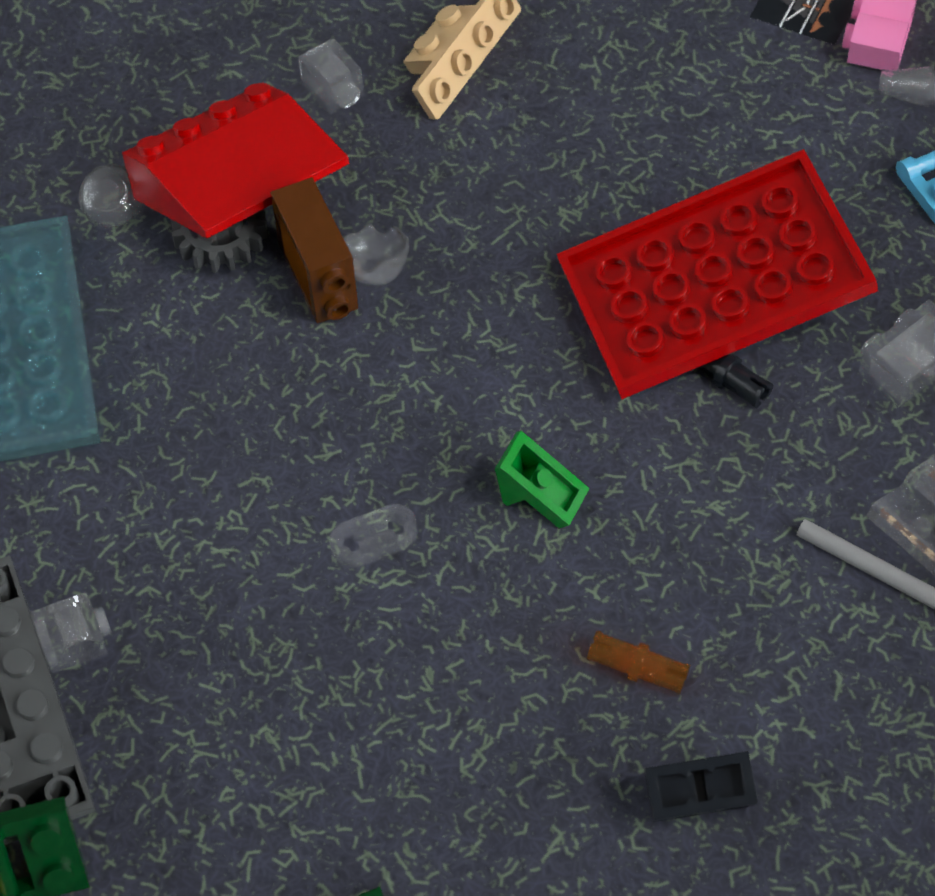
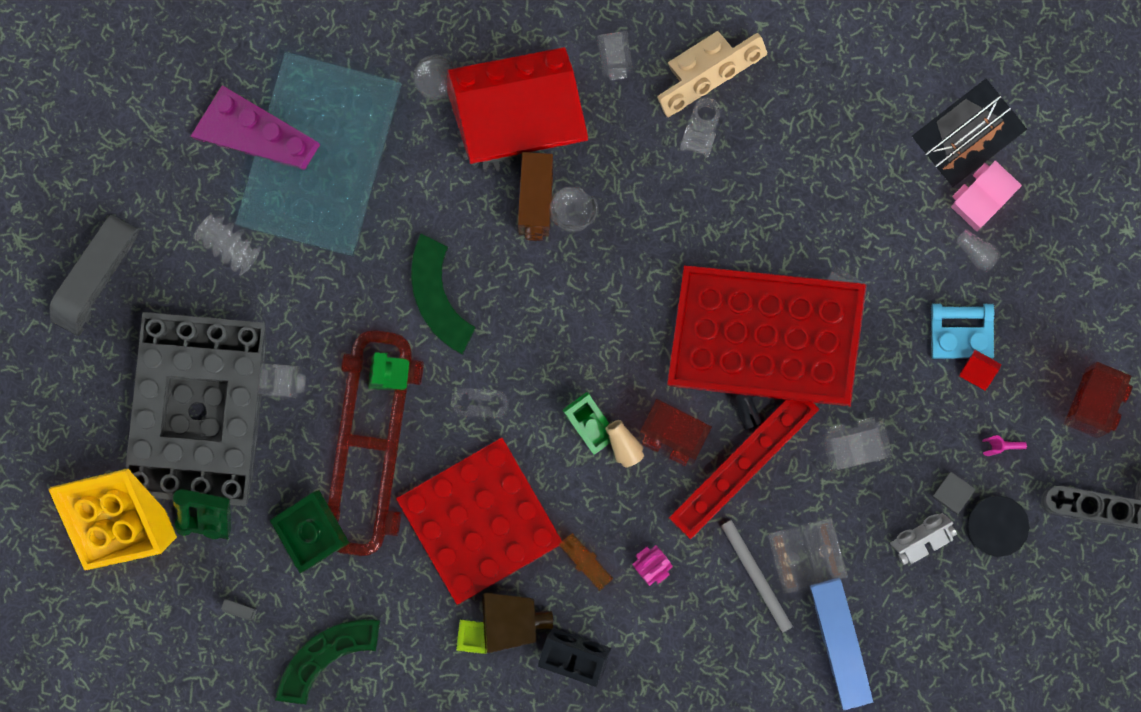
camera: 25 degrees right, 25 degrees up
(210, 806) = (309, 531): none -> dark green plate
(218, 546) = (388, 372): none -> green slope
(239, 443) = (431, 297): none -> dark green tile
(318, 744) = (386, 521): none -> clear red bar
(455, 686) = (479, 521): none -> red plate
(487, 102) = (701, 133): none -> clear piece
(533, 844) = (471, 637): none -> lime tile
(577, 789) = (511, 621): none -> dark brown torso
(605, 489) = (624, 445): none -> tan cone
(665, 434) = (674, 433): none -> clear red brick
(735, 618) = (652, 565): none -> dark pink gear
(778, 446) = (742, 465): none -> red plate

